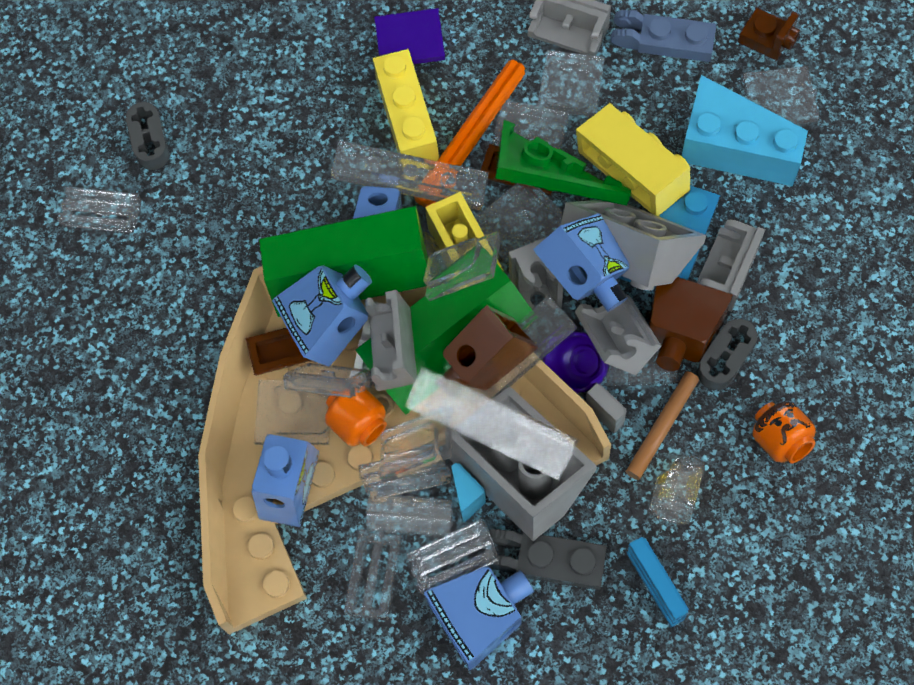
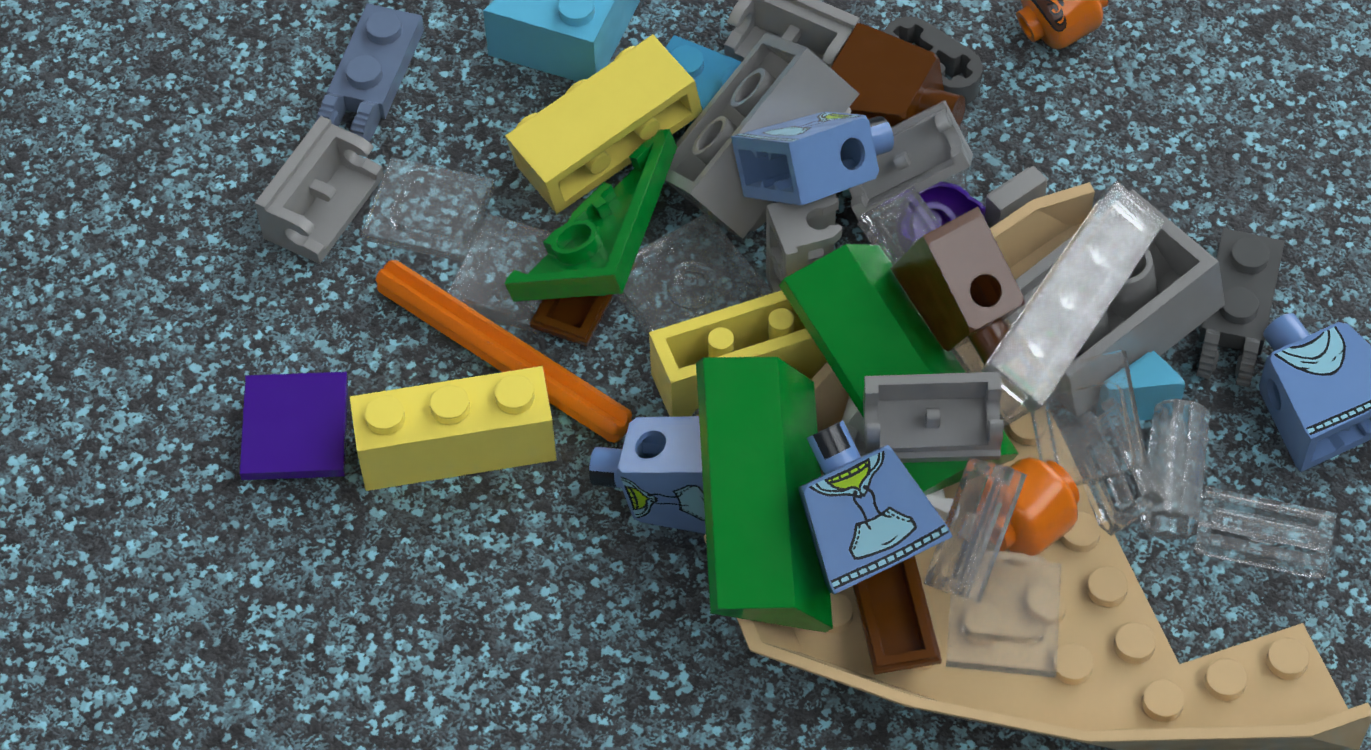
camera: 90 degrees left, 10 degrees down
(284, 475) = (1134, 603): medium blue torso -> none
(408, 174) = (590, 422): clear tile -> none
(446, 543) = (1228, 364): clear tile -> none
(461, 265) = (809, 309): clear piece -> none
(657, 581) = (1278, 171): dark azure tile -> none
(662, 425) = (1034, 148): medium nougat bar -> none
(677, 490) = (1143, 130): clear rock -> none

